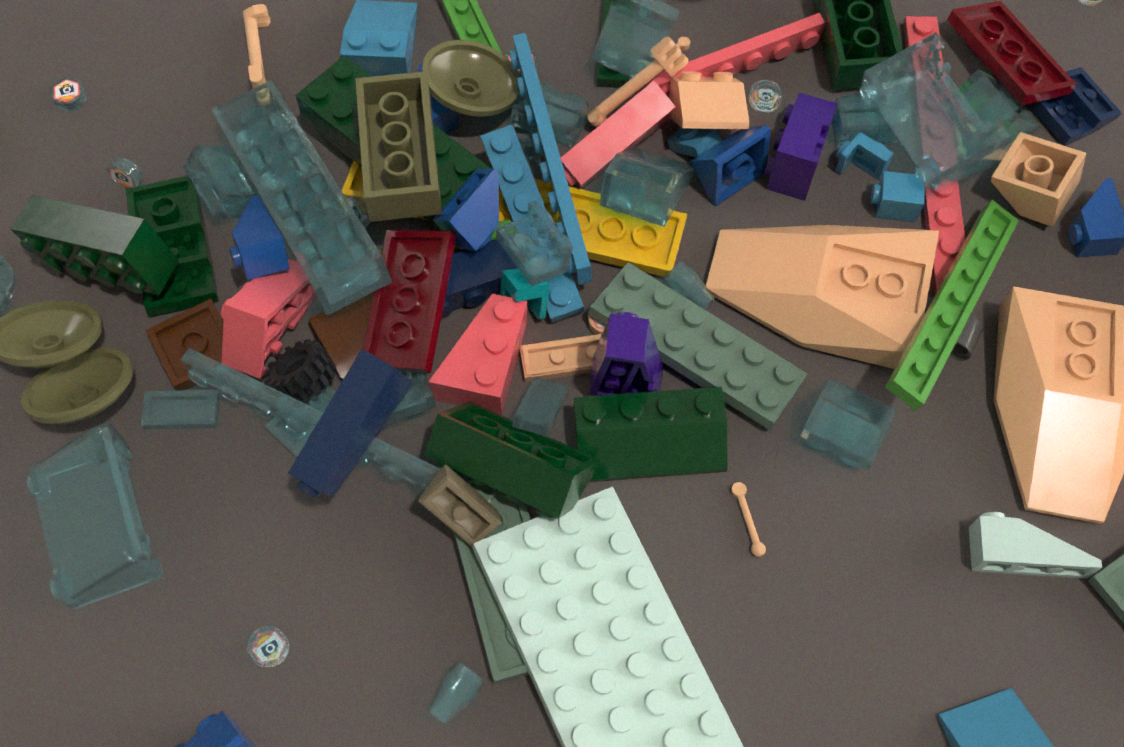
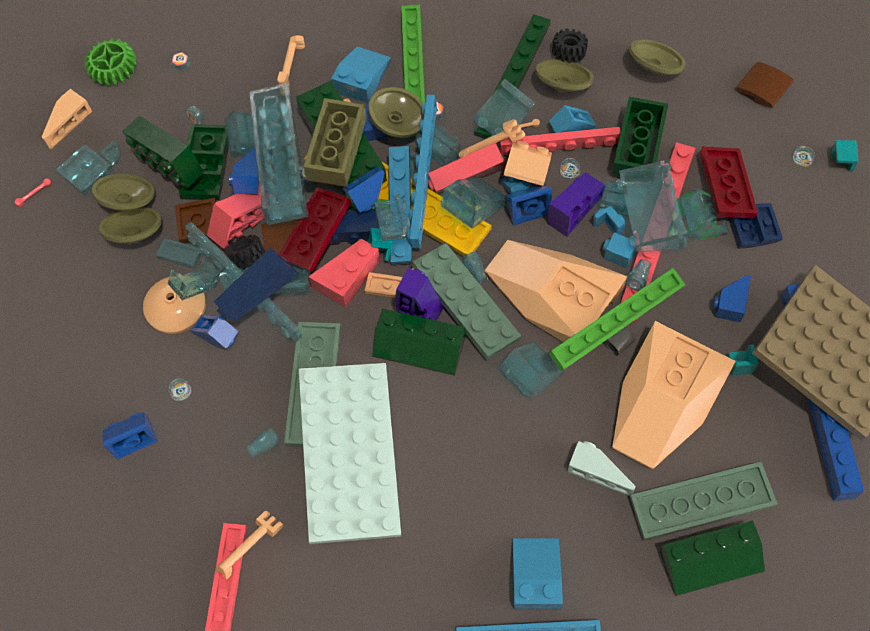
camera: 25 degrees right, 0 degrees up
(92, 519) = (114, 296): clear light blue windscreen -> none
(216, 515) = (171, 315): none -> light nougat dish
(230, 449) = (194, 282): none -> clear light blue panel
(295, 523) = (215, 331): none -> slope
(460, 506) = (298, 347): dark tan slope -> none
(510, 459) = (336, 330): dark green slope -> none
(540, 406) = (365, 308): clear light blue tile -> none
(738, 23) = (571, 119): none -> dark azure slope
(738, 491) = (456, 388): light nougat hinge -> none
(951, 225) = (638, 276): none -> clear light blue cone
(1038, 177) = (707, 263): light nougat slope -> none

